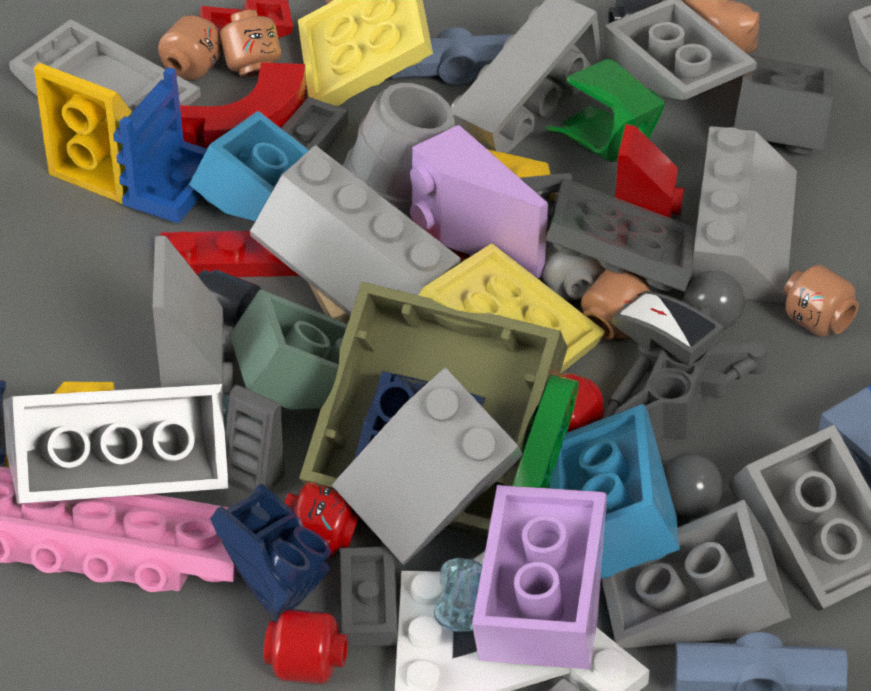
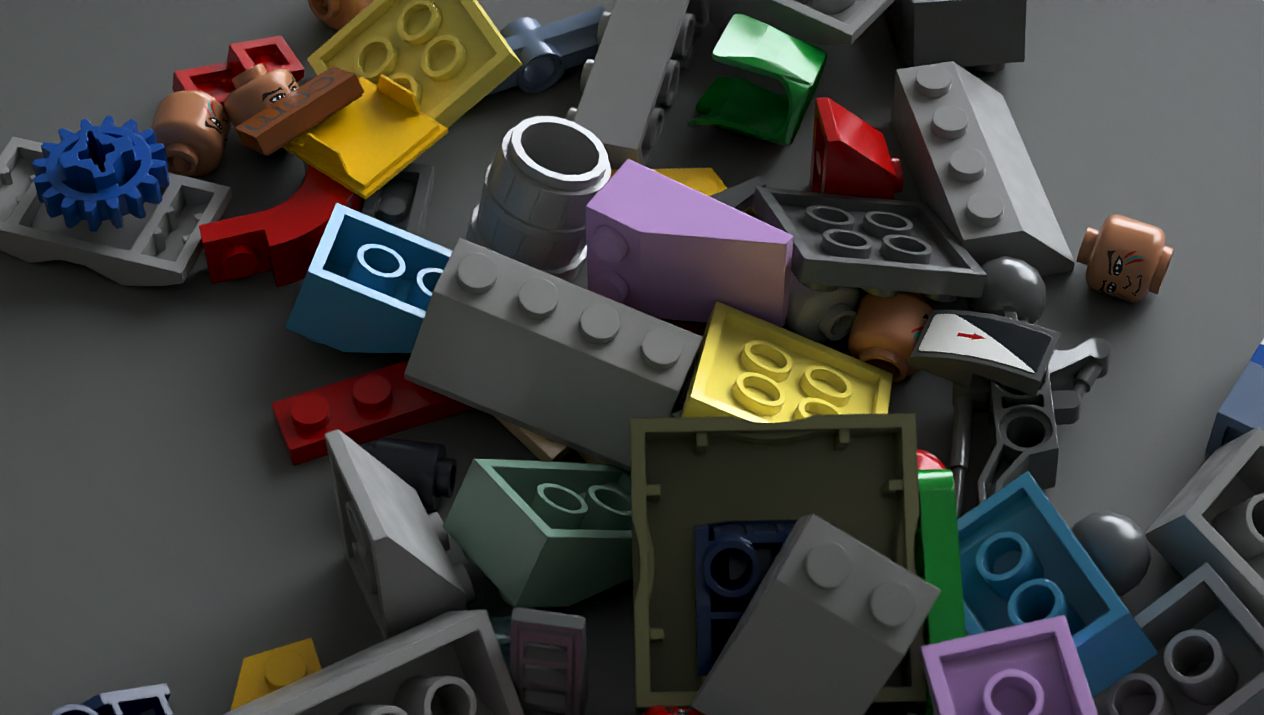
camera: 20 degrees left, 5 degrees up
(79, 131) = (129, 298): yellow slope -> none
(113, 53) = (101, 173): none -> blue gear
(156, 156) = (235, 308): blue plate -> none
(264, 46) = (300, 110): none -> dark orange tile
(304, 75) = (369, 138): none -> yellow piece

